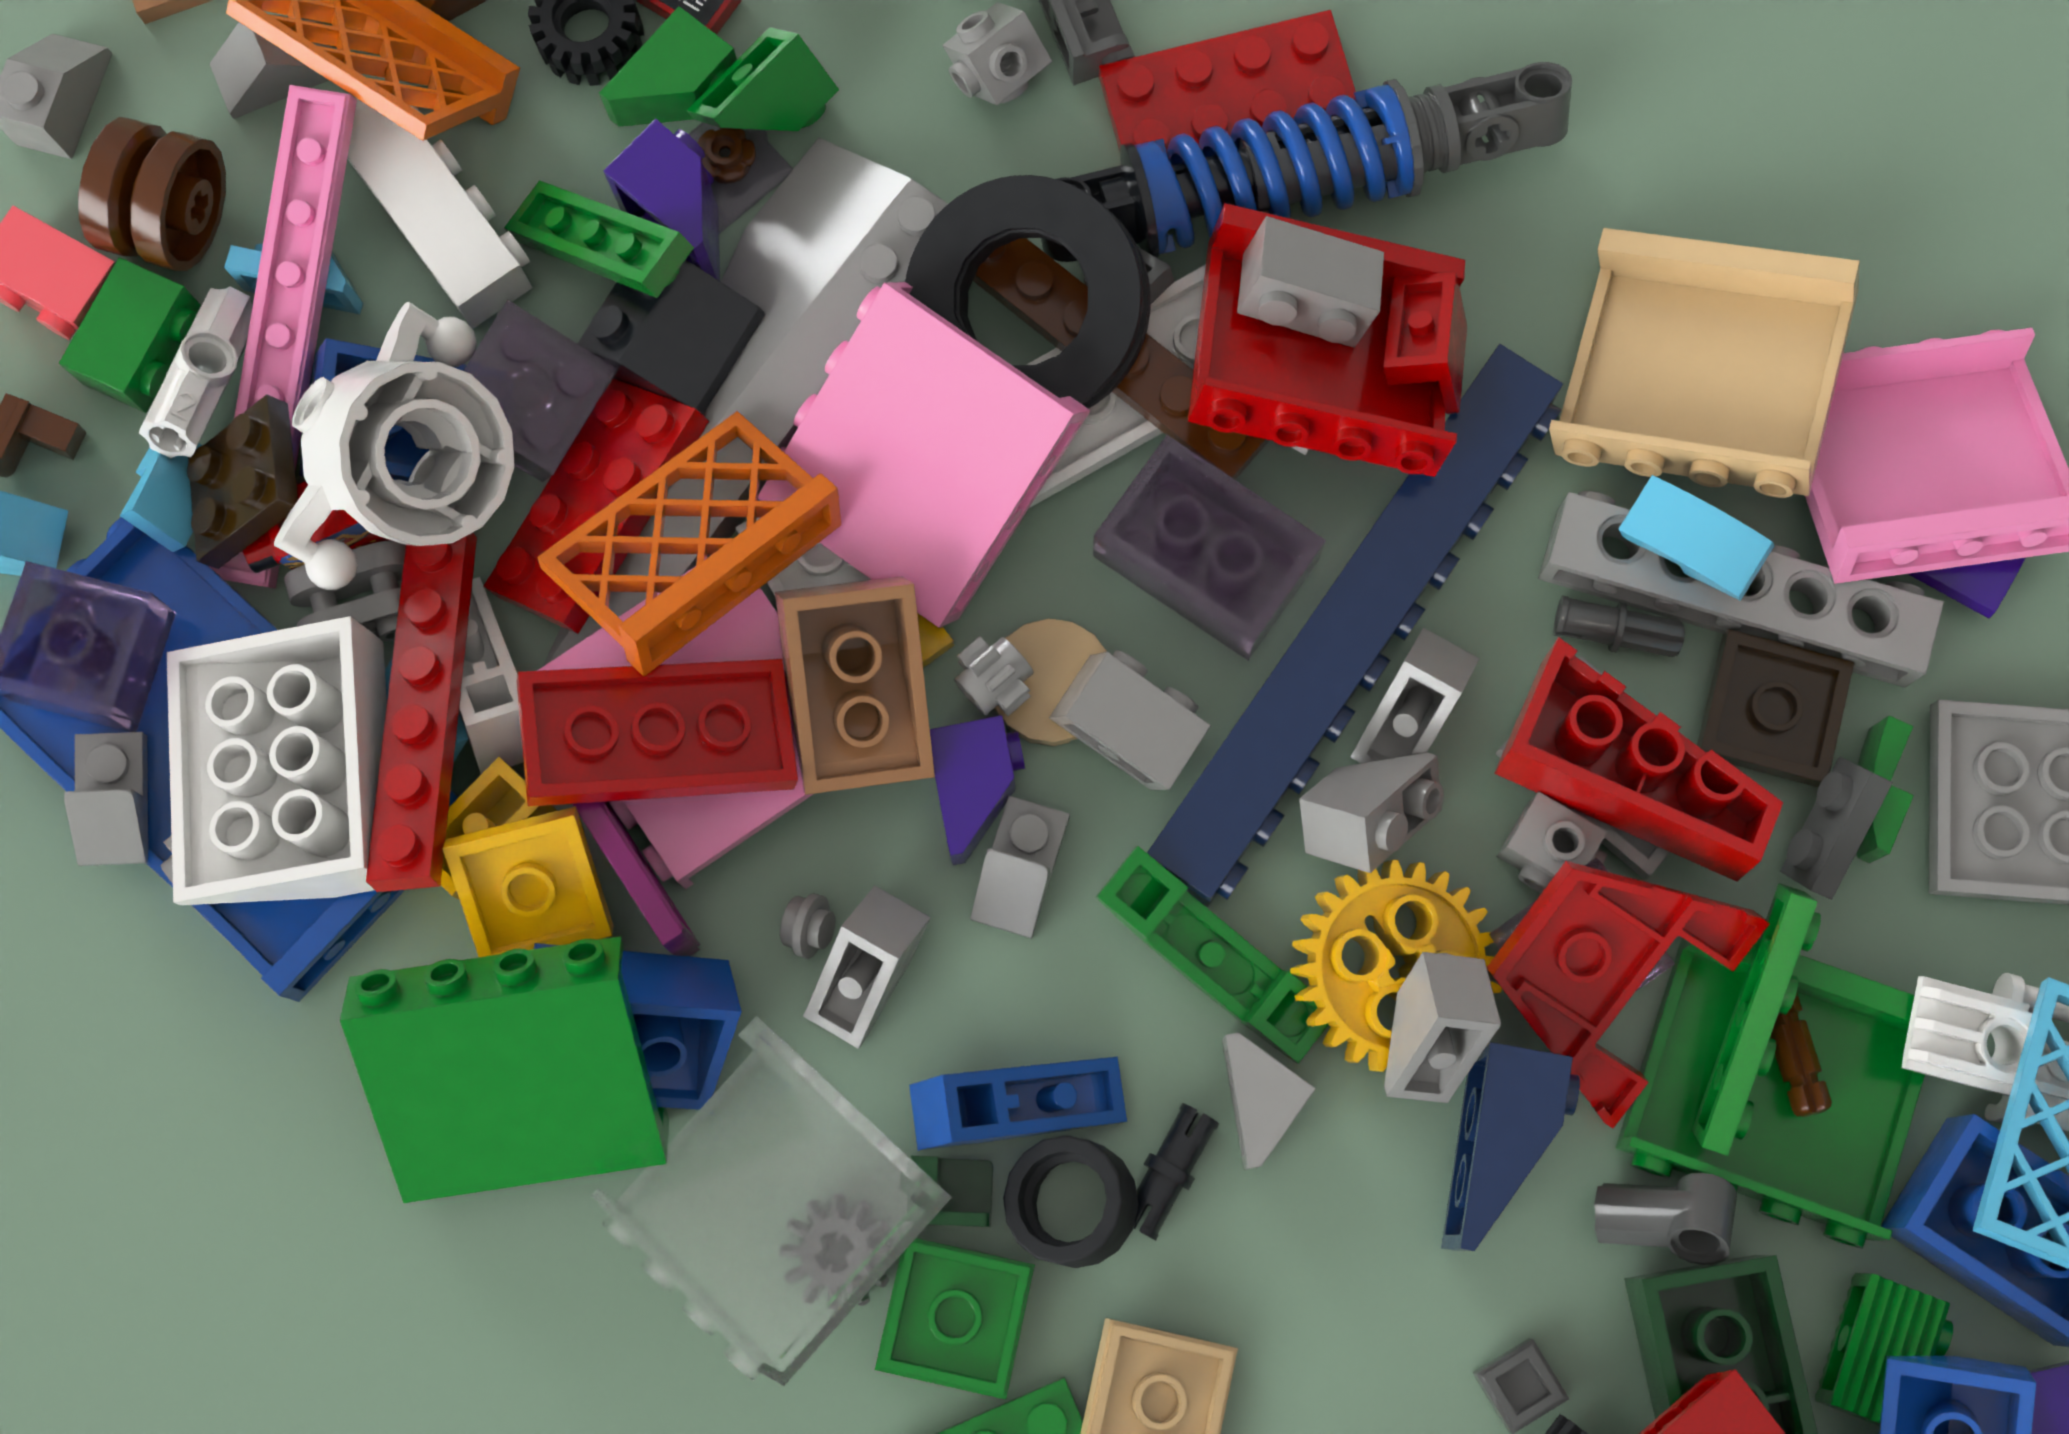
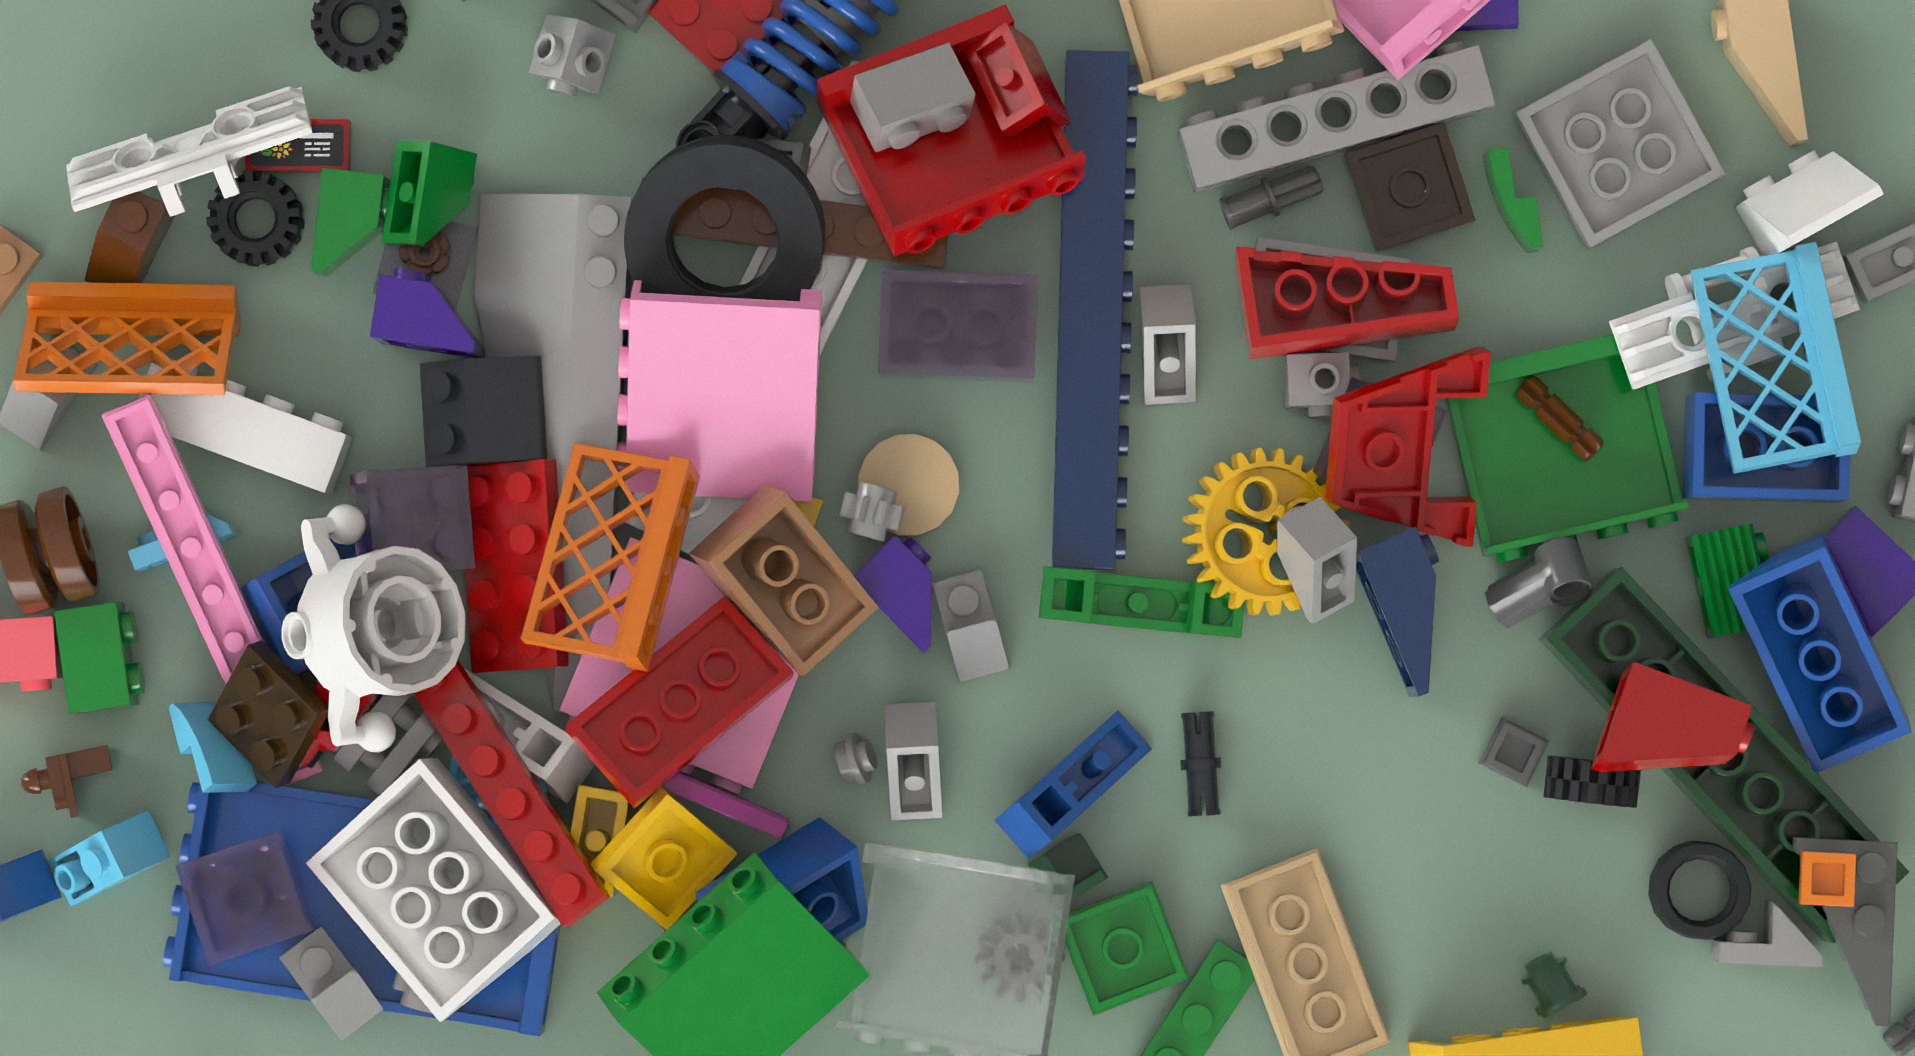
camera: 40 degrees left, 10 degrees up
(199, 373) = (180, 677): white piece -> none
(600, 238) = (390, 381): green plate -> none
(1023, 1190) = (1115, 842): black tyre -> none
(1131, 719) = (982, 480): light grey brick -> none
(1263, 1097) = (1233, 676): light grey slope -> none
(1370, 809) = (1182, 437): light grey slope -> none
(1696, 537) = (1286, 112): medium azure slope -> none
(1747, 1042) = (1516, 398): green plate -> none
(1835, 827) = (1497, 249): dark grey plate -> none

